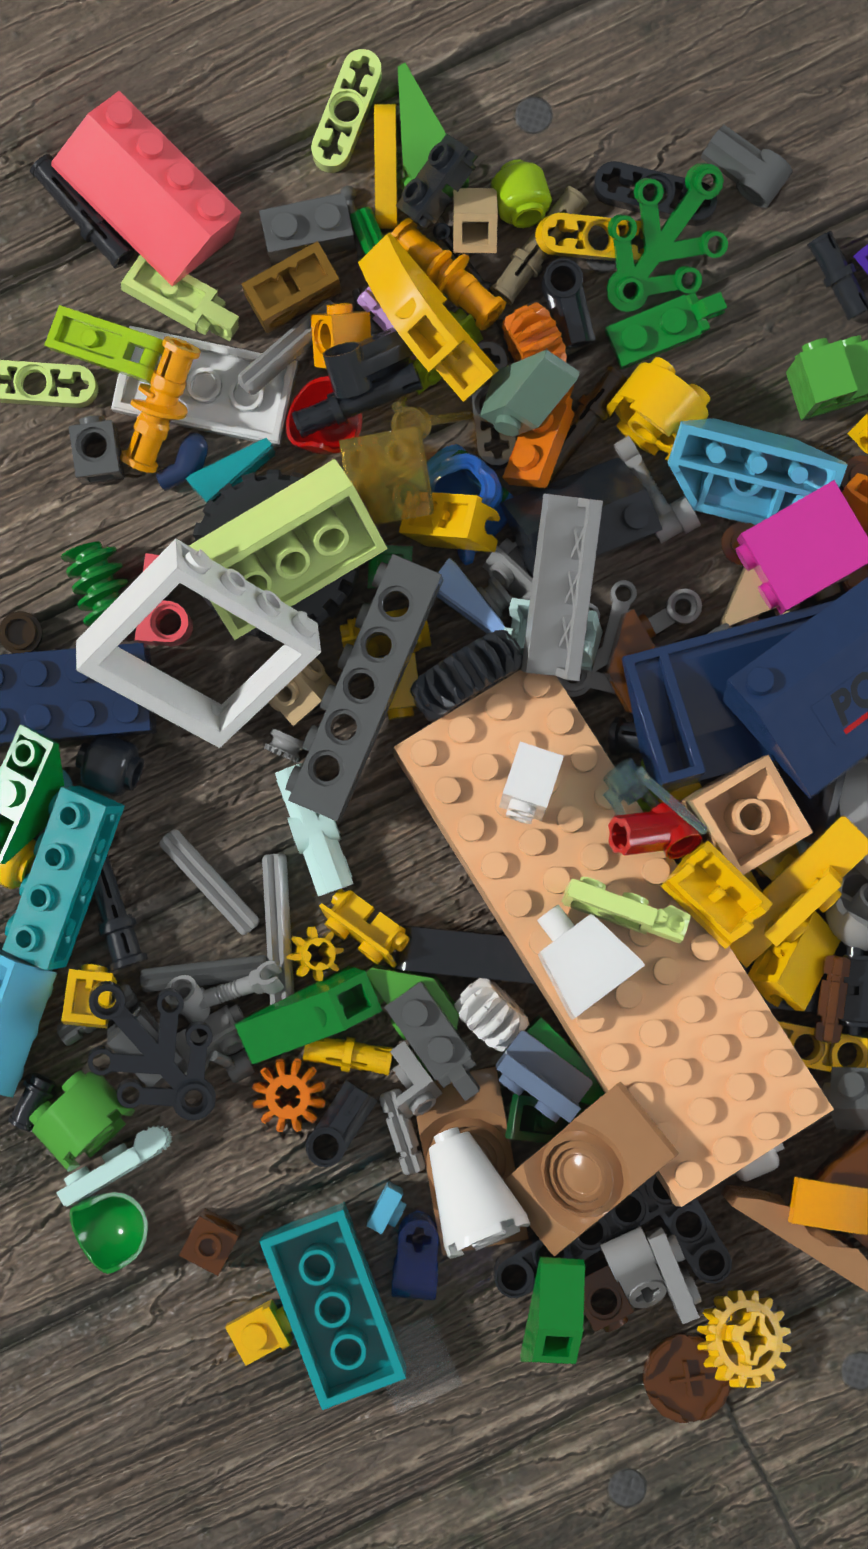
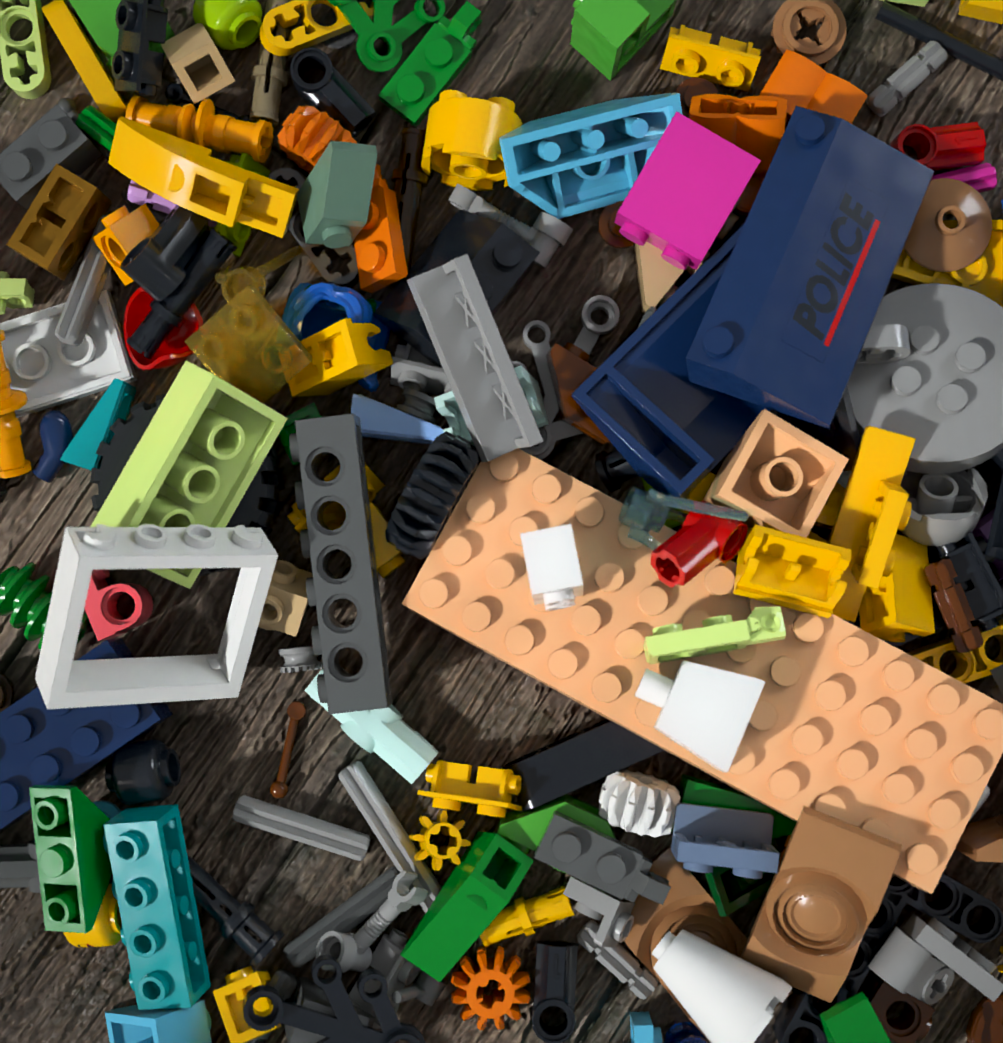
camera: 30 degrees left, 0 degrees up
(257, 787) = (295, 711): none -> reddish brown hinge

